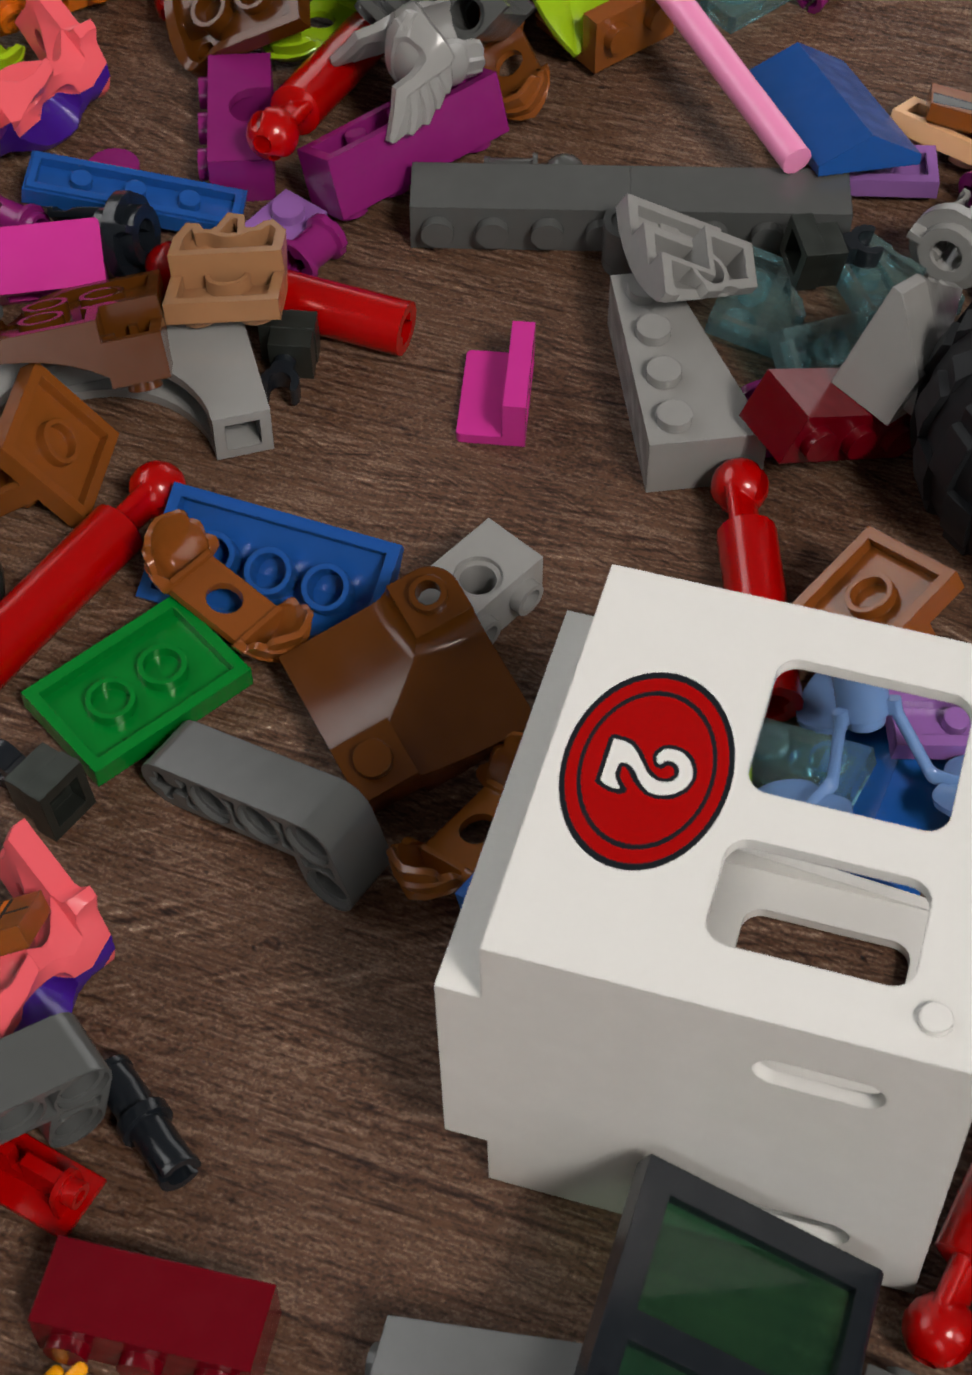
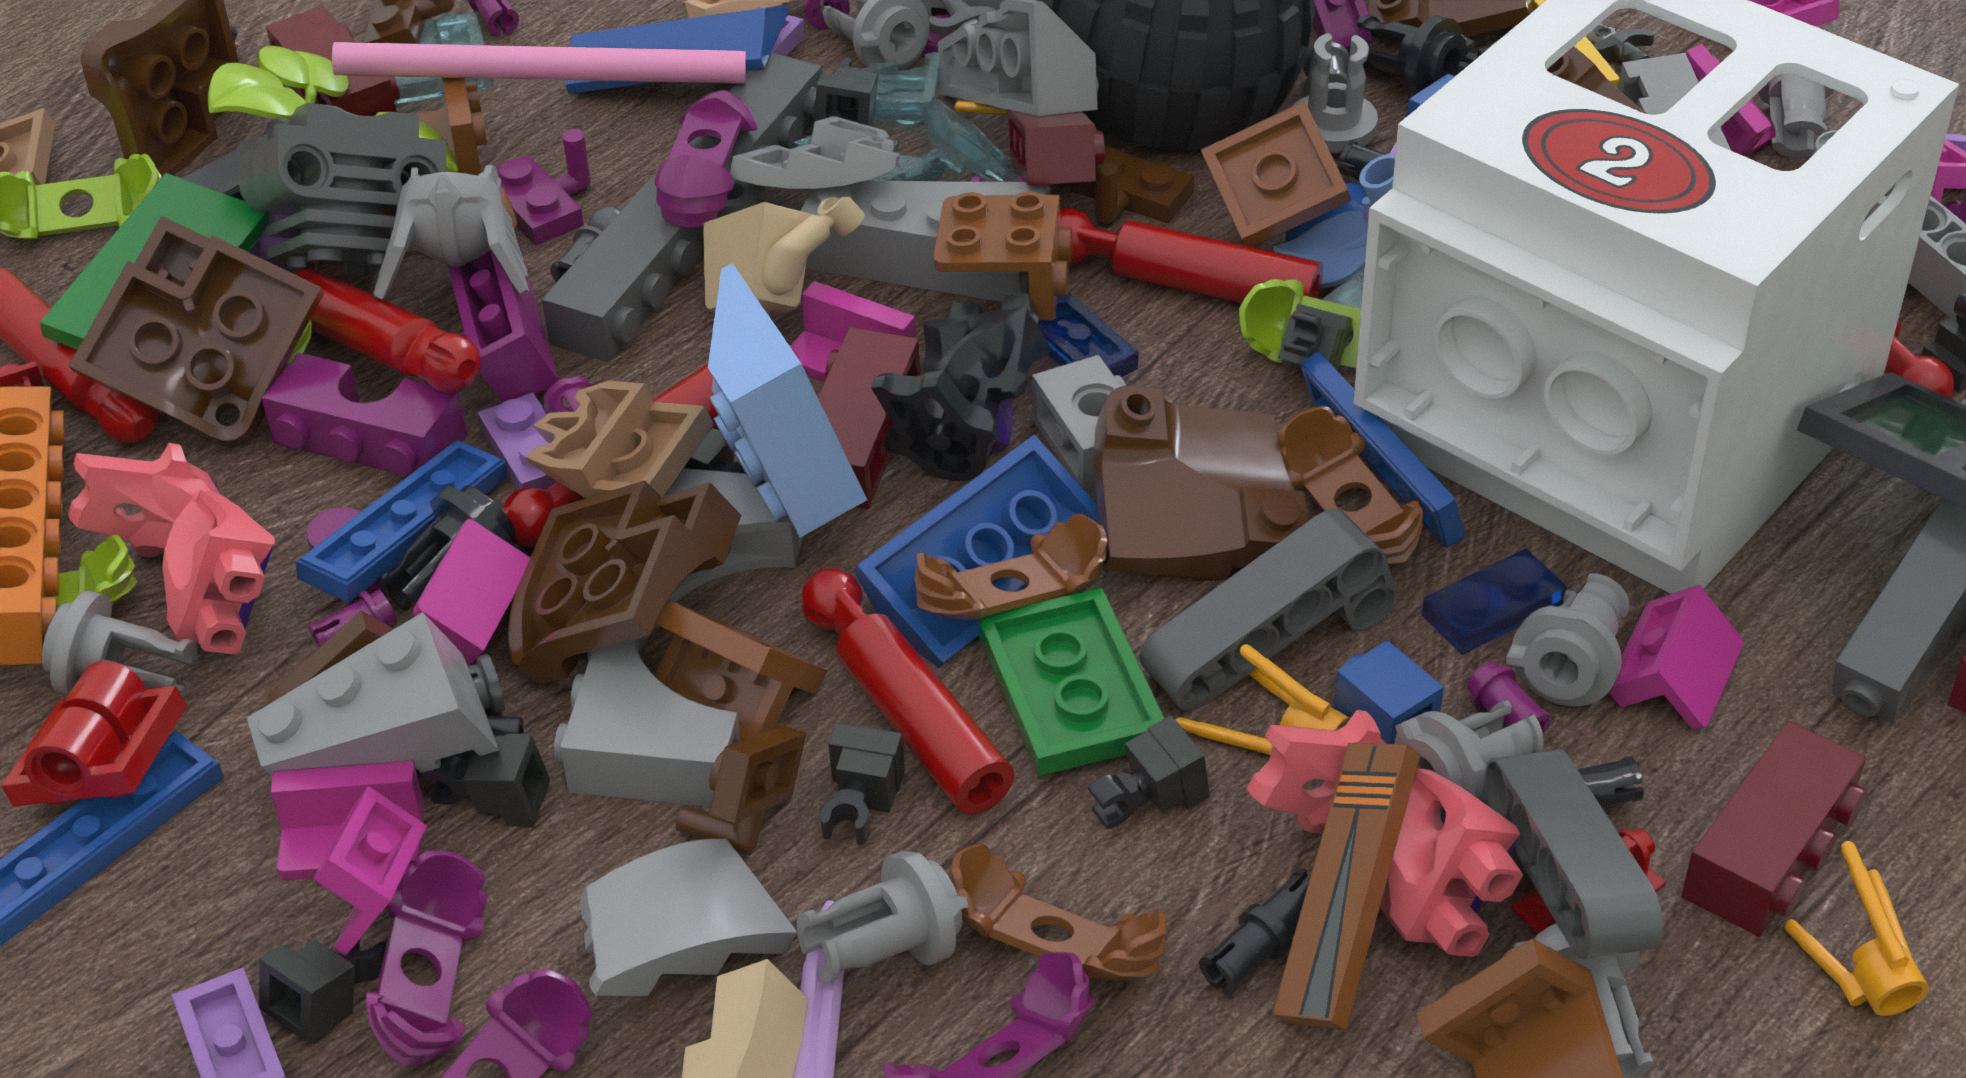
camera: 65 degrees left, 10 degrees down
(141, 1014) = (1464, 746): none -> light grey piece
(147, 885) = (1303, 711): none -> light orange plant
(200, 934) = (1387, 688): none -> blue brick
(247, 1039) = (1497, 684): none -> magenta pin
(264, 328) = (775, 415): none -> light blue slope
(340, 1068) = (1572, 649): none -> light grey piece
(374, 1180) = (1682, 652): none -> dark pink panel
(387, 991) = (1492, 601): none -> clear blue plate
(392, 423) = (852, 405): none -> dark red brick
(461, 481) = (965, 360): none -> black hips
(534, 270) = (772, 248): none -> tan torso
(588, 113) = (544, 203): none -> magenta plate
(593, 180) = (692, 180): none -> magenta piece
(594, 540) = (1082, 334): none -> clear blue plate
(644, 434) = (1008, 236): none -> dark orange bracket
(867, 497) = (1137, 187): none -> reddish brown plate

